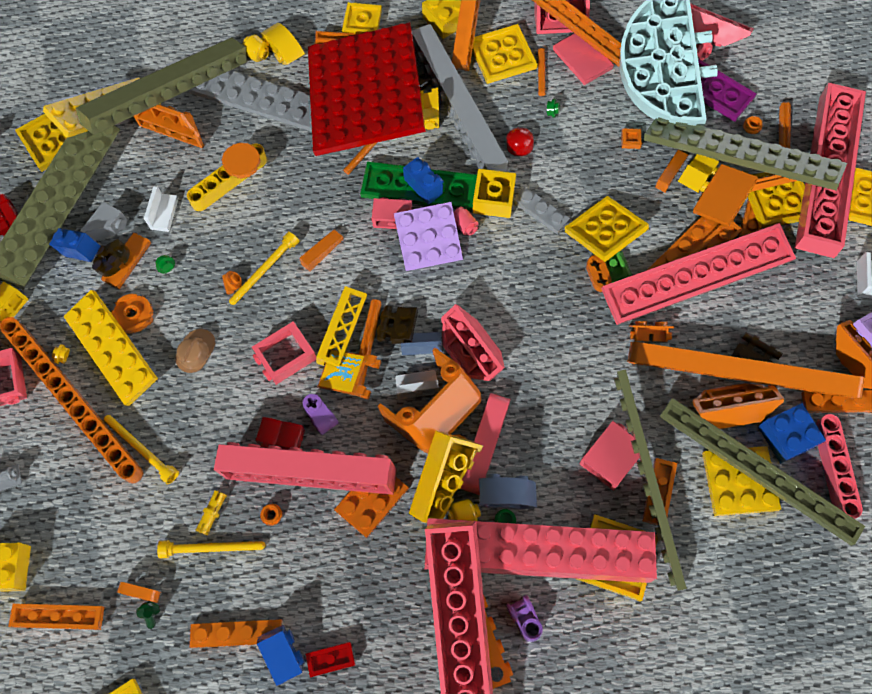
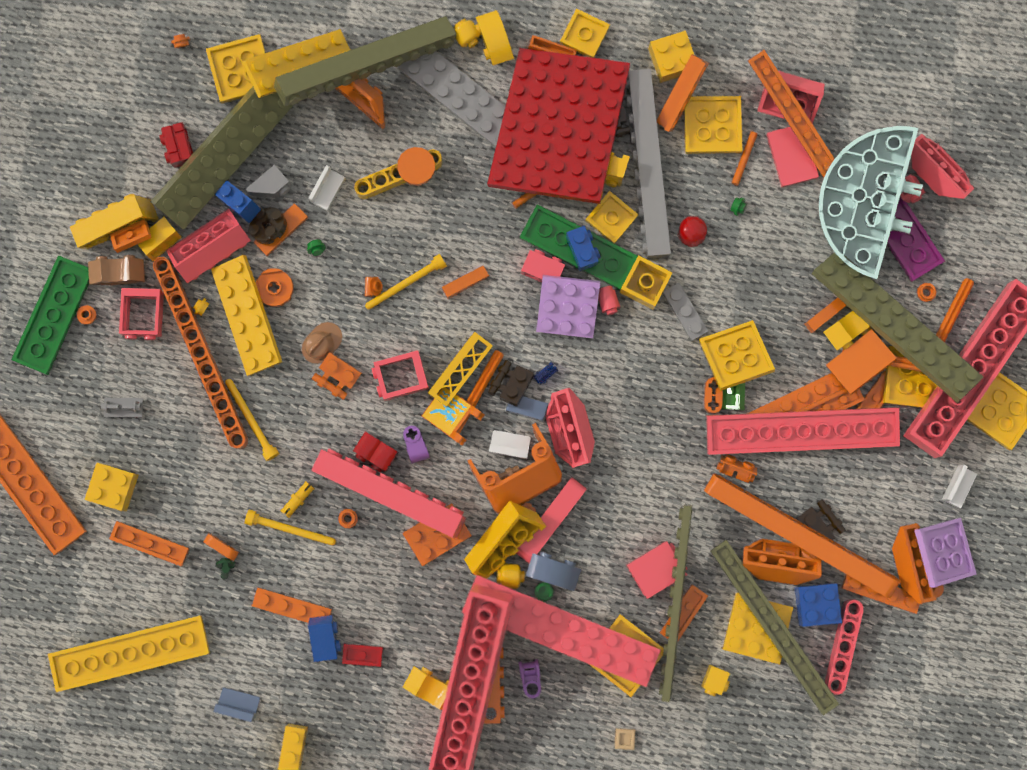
camera: 15 degrees right, 15 degrees up
(56, 295) = (208, 246): none -> coral slope
(218, 368) = (339, 370): none -> orange plate
(414, 669) = (426, 686): none -> yellow brick
(429, 304) = (545, 373): none -> clear blue pin
(441, 151) = (611, 217): none -> yellow plate
(631, 138) = (801, 266): orange plate -> none
(653, 651) = (624, 739): none -> tan tile
(723, 550) = (715, 681): none -> yellow brick

